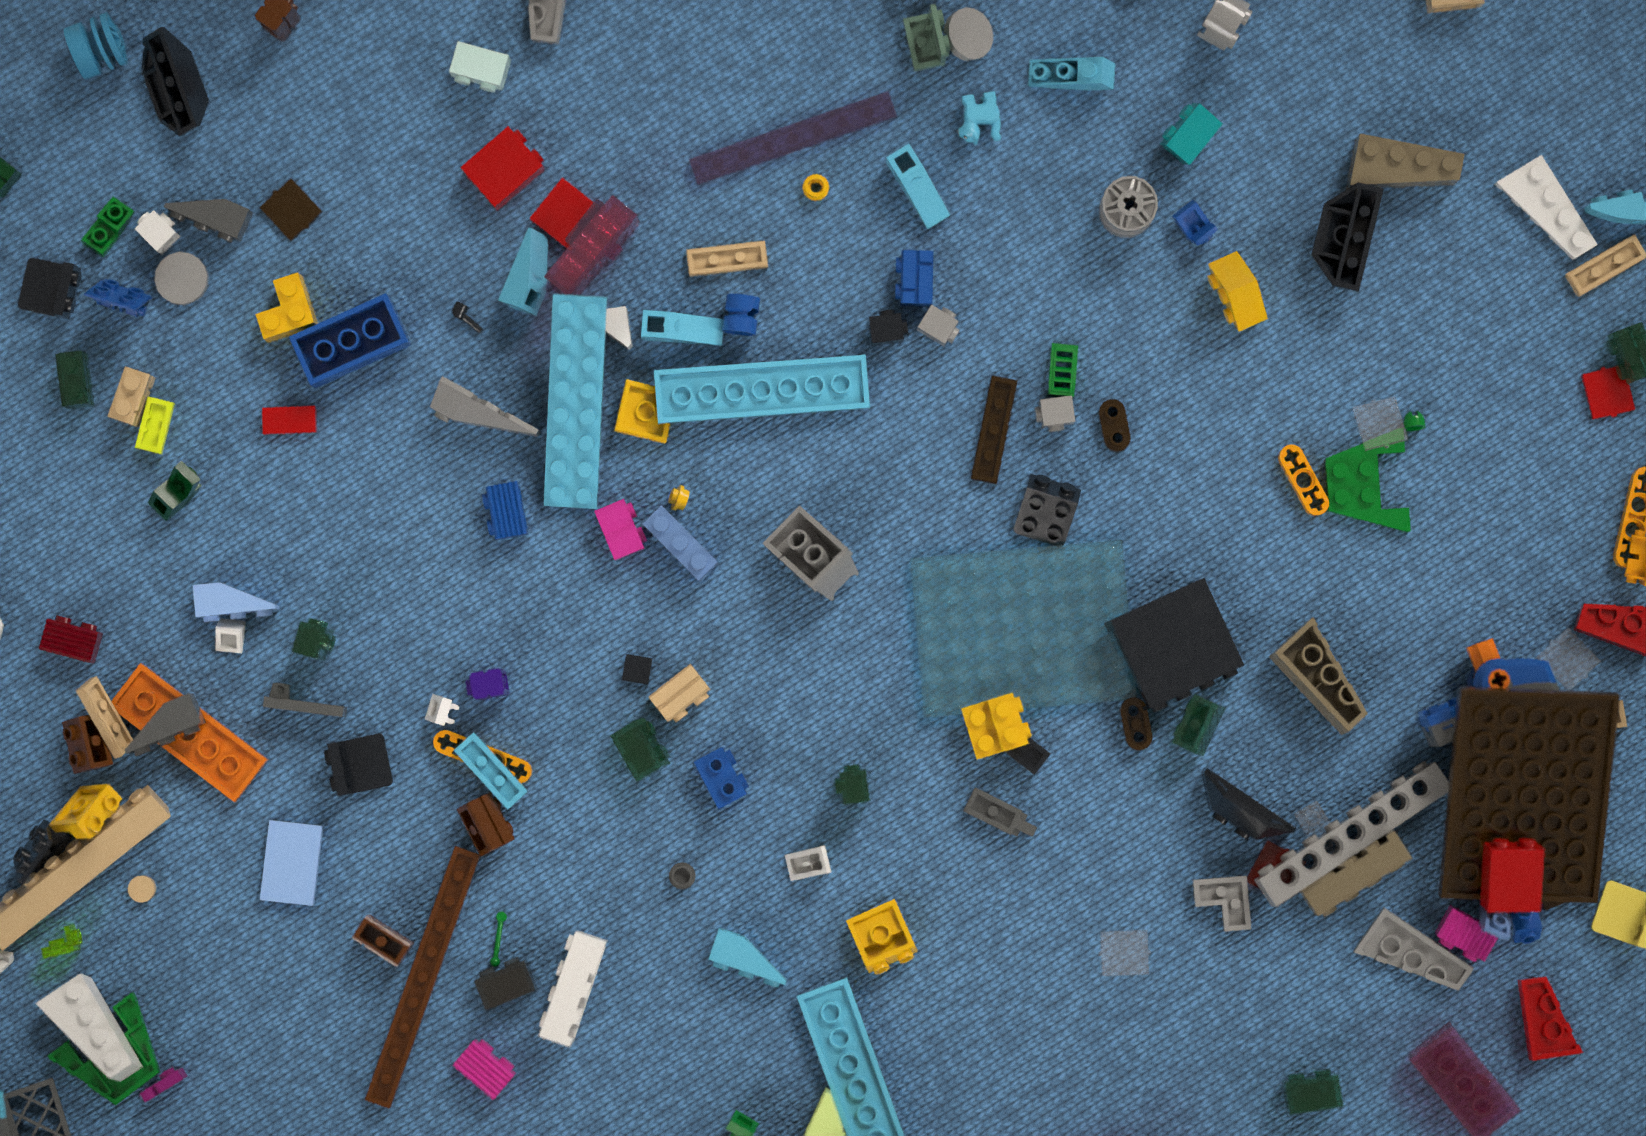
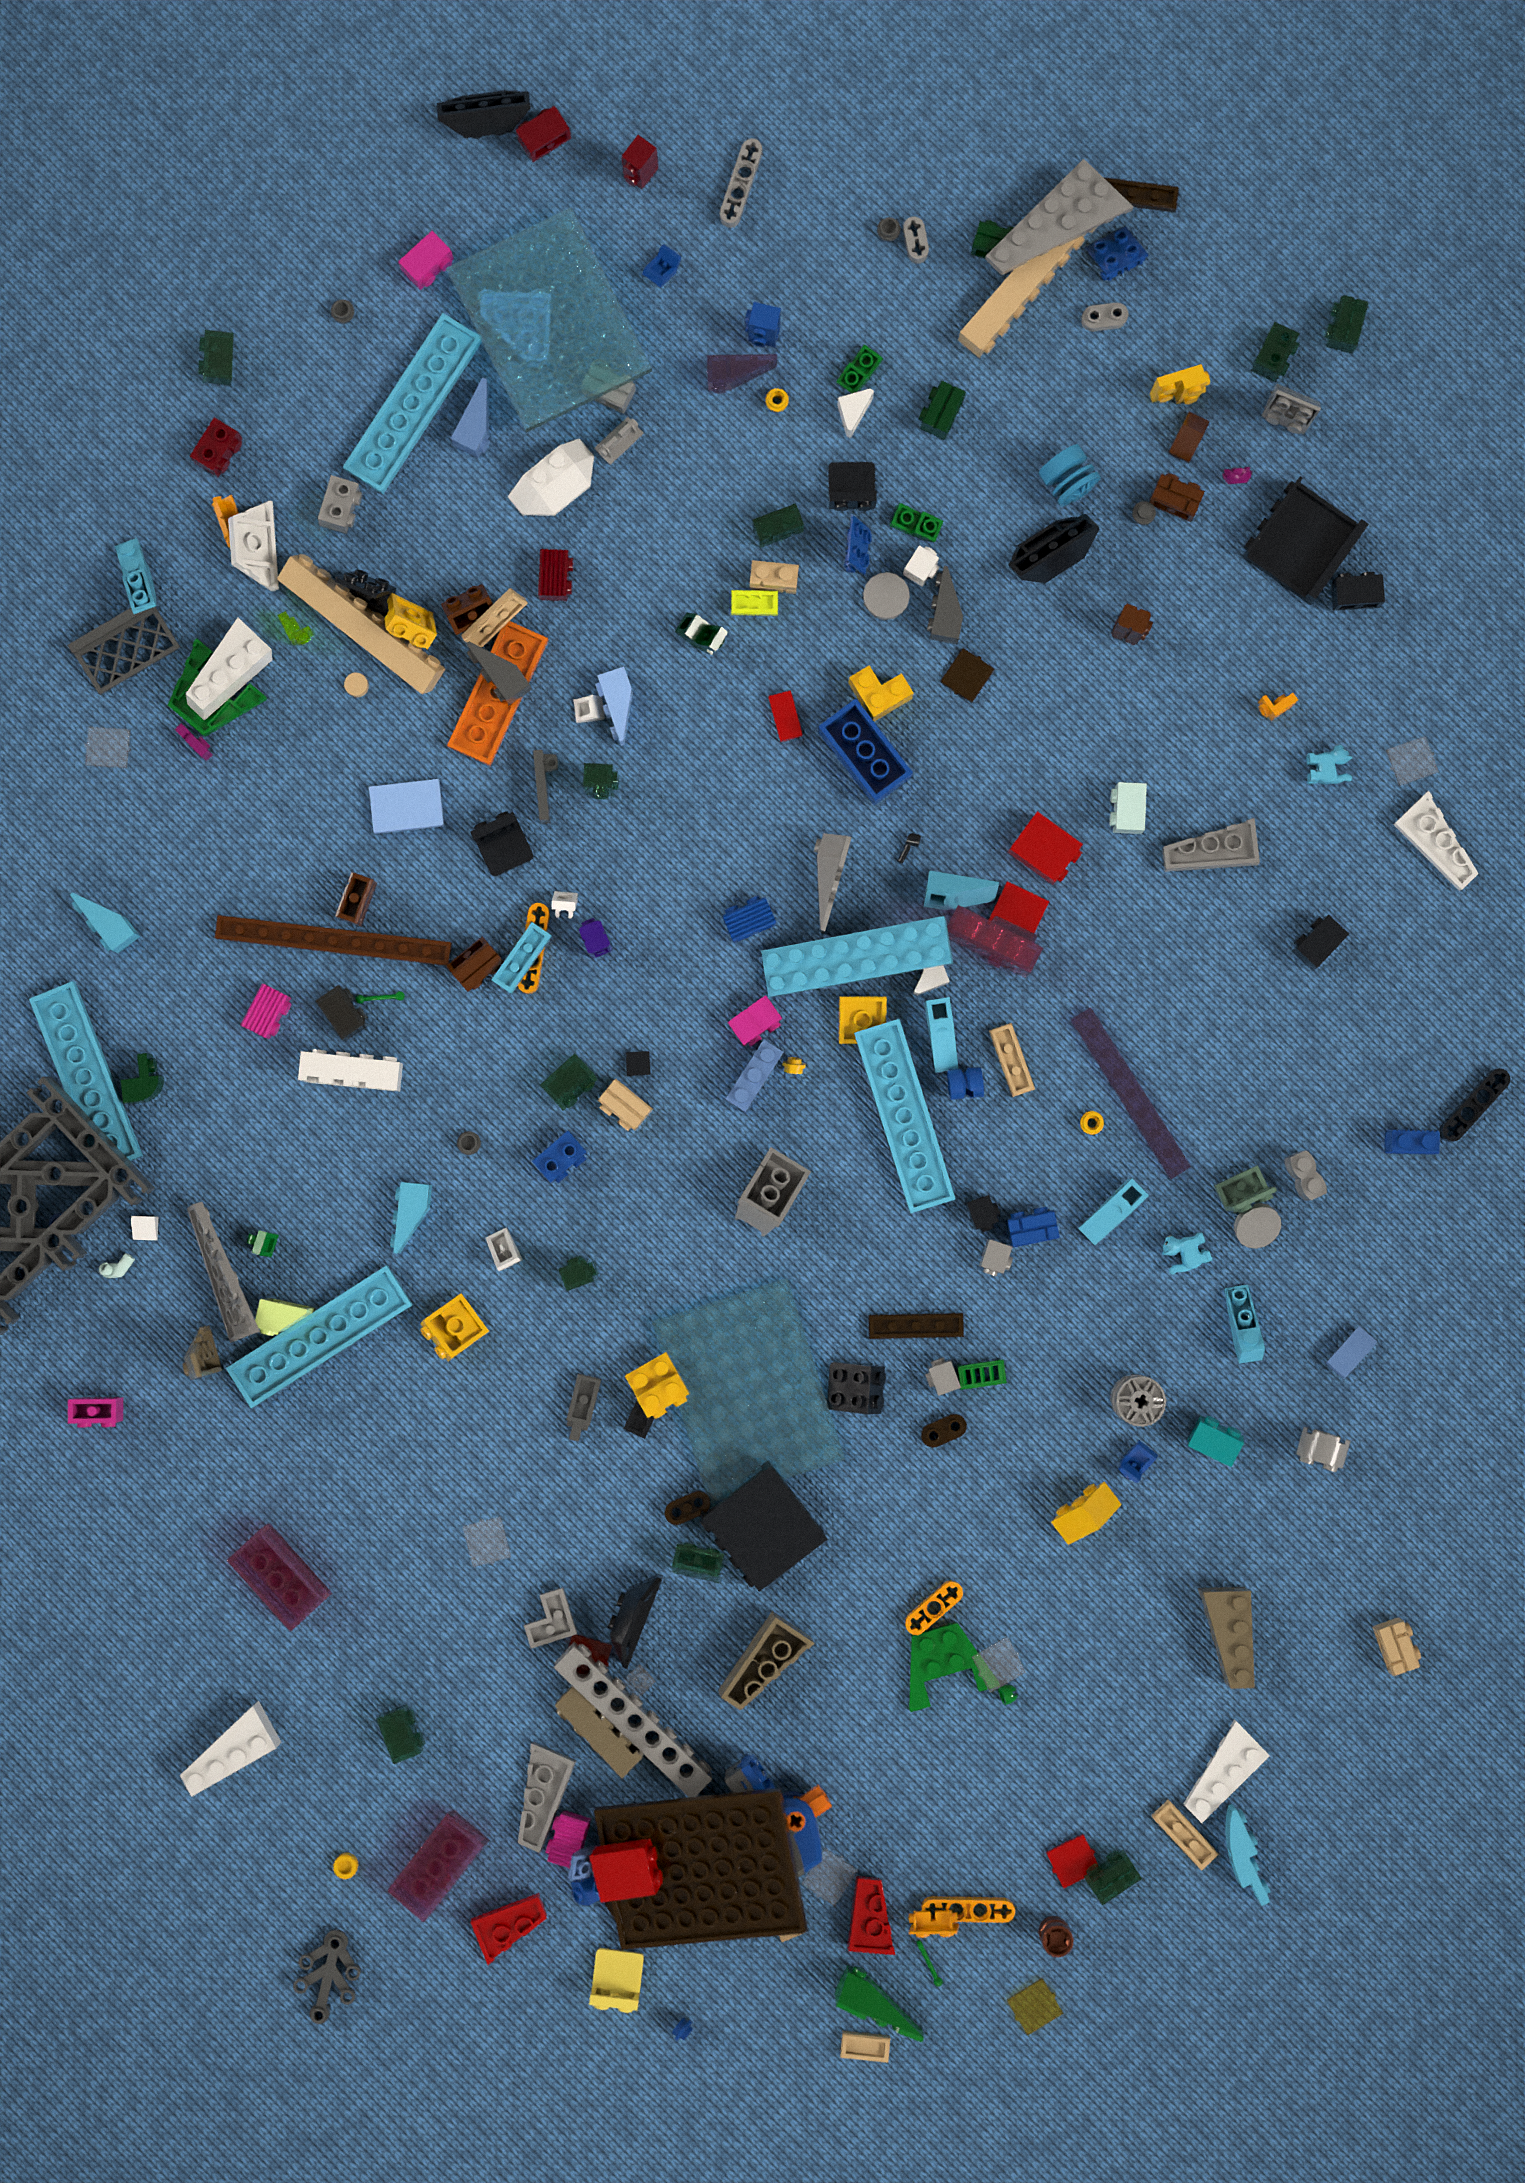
camera: 70 degrees right, 0 degrees up
(1346, 235) = (1158, 1598): black wedge -> none

